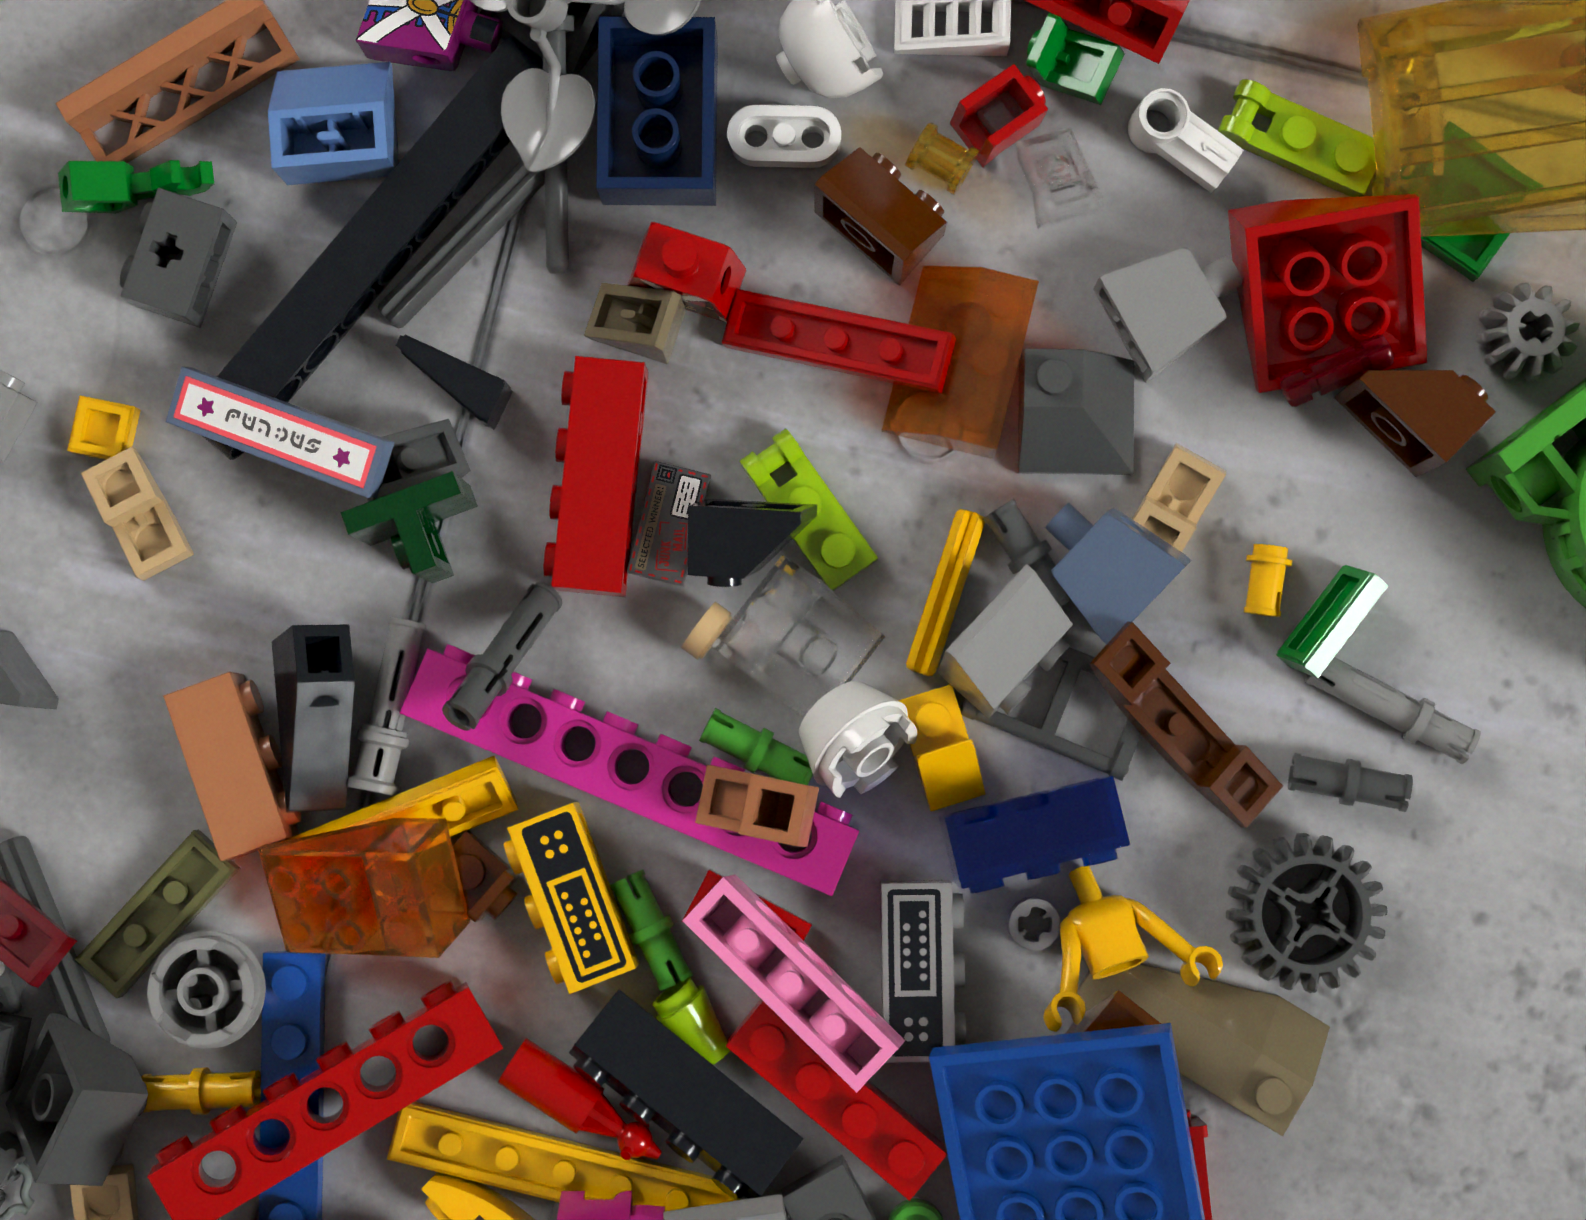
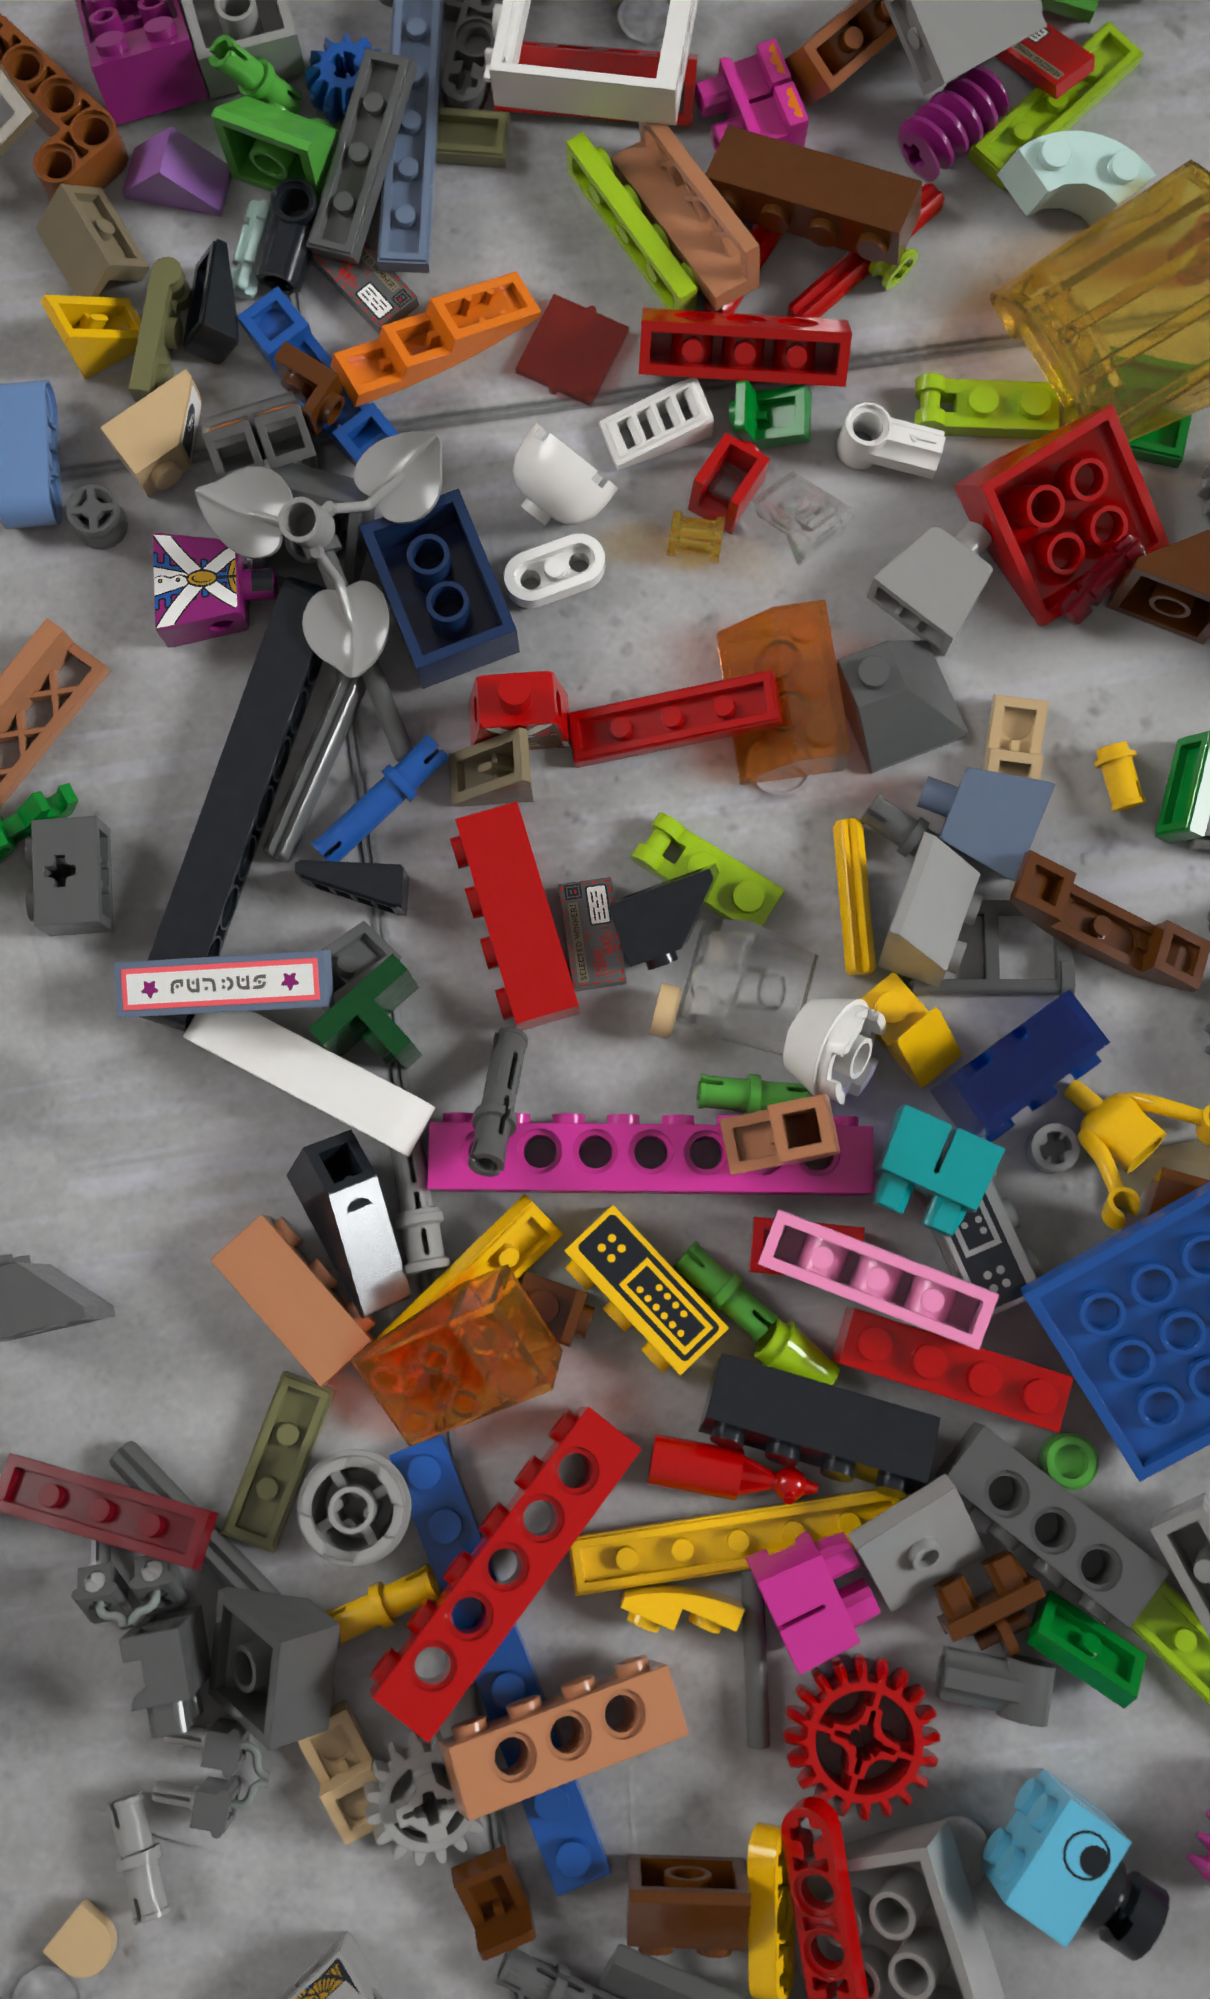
camera: 30 degrees left, 5 degrees down
(102, 428) = (62, 1052): yellow tile -> none
(137, 513) = (121, 1112): tan slope -> none
(333, 123) = (164, 710): medium blue slope -> none
(336, 561) = (314, 1076): none -> white beam
(512, 304) = (381, 800): none -> blue pin
(879, 212) = (663, 602): reddish brown slope -> none
(914, 918) = (909, 1165): none -> teal hips

